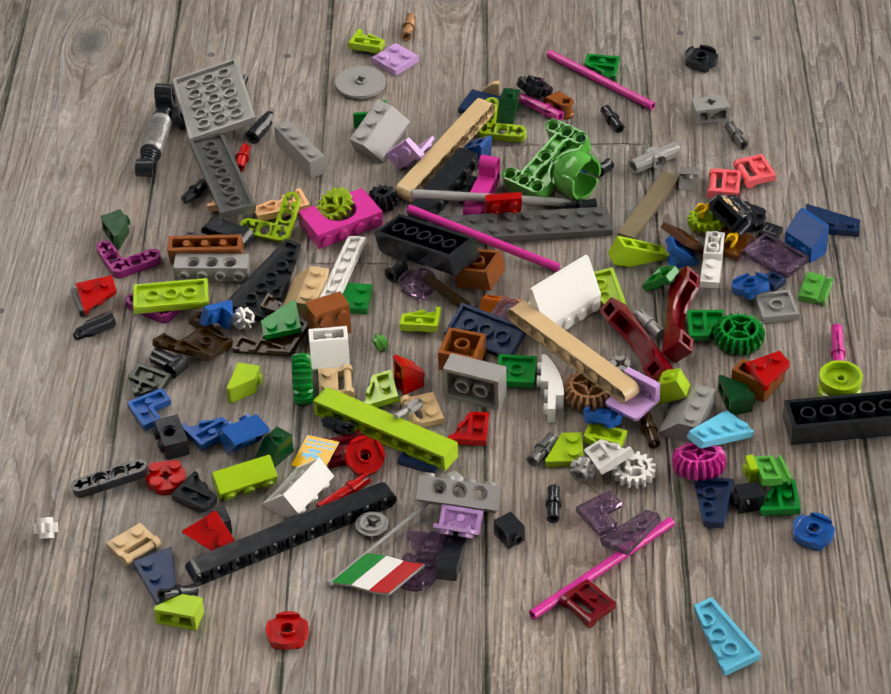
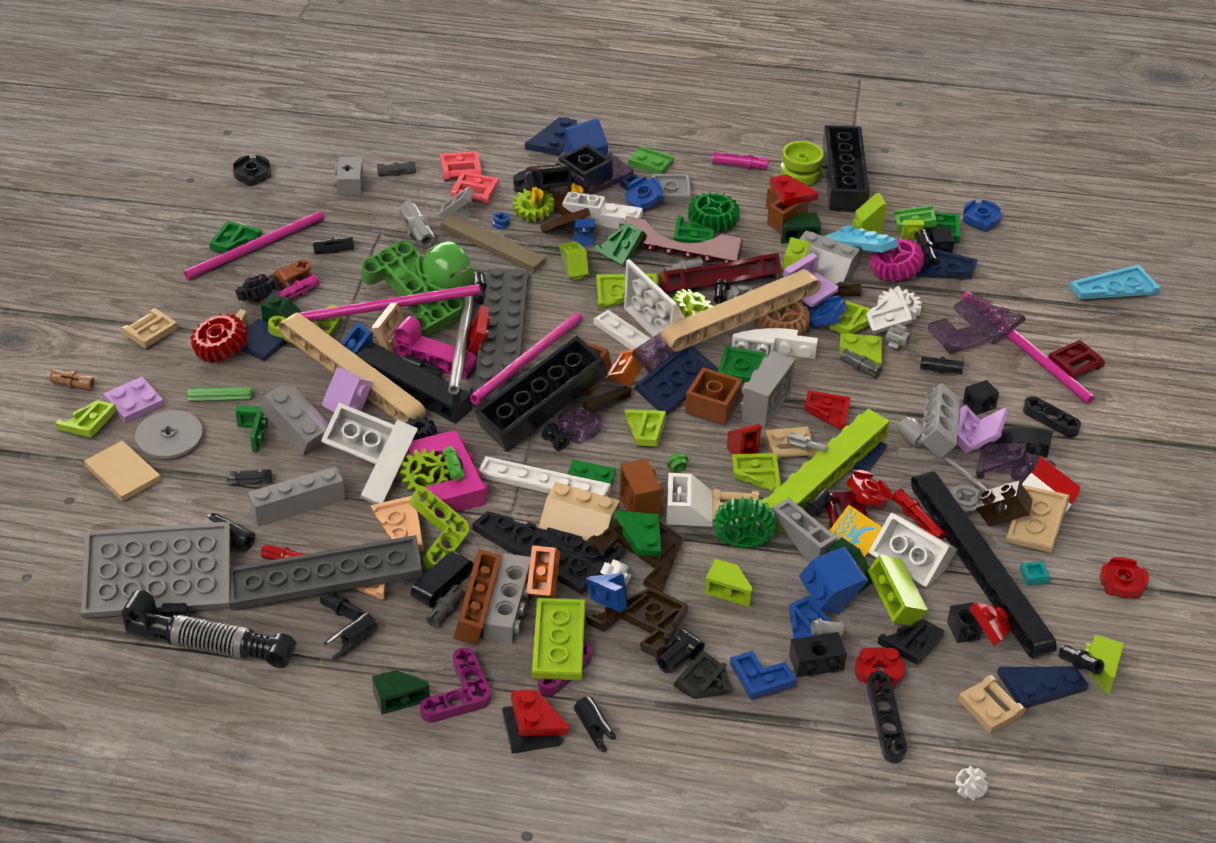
camera: 85 degrees left, 0 degrees up
(170, 200) = (354, 633): none -> black piece
(192, 431) = (821, 627): none -> light grey pin
(230, 275) = (543, 571): none -> orange brick
(287, 573) = (1034, 573): none -> teal tile
(301, 413) = (805, 532): none -> light grey slope
(318, 70) = (122, 471): none -> tan tile
(322, 127) = (249, 477): none -> black axle
(338, 212) = (453, 463): none -> bright green axle
(347, 568) = (1043, 524): none -> tan tile
(349, 181) = (388, 462): none -> white tile
(352, 536) = (1004, 503): none -> dark brown brick
(363, 164) = (357, 433): none -> white slope
(410, 96) = (219, 393): none -> bright green axle
(466, 79) = (219, 338): none -> red gear
(476, 48) = (150, 328): none -> tan plate
(499, 593) = (1064, 423): none -> black beam
(506, 154) = (386, 325): none -> tan plate
(539, 185) = (384, 303): none -> dark pink piece
(595, 332) = (690, 302): none -> lime gear
(625, 349) = (721, 287): none -> black pin
(680, 204) = (501, 220): none -> blue bush
(720, 478) = (927, 247): none -> black pin
(757, 233) = (589, 164): none -> black slope
(763, 440) = (871, 215): none -> lime slope

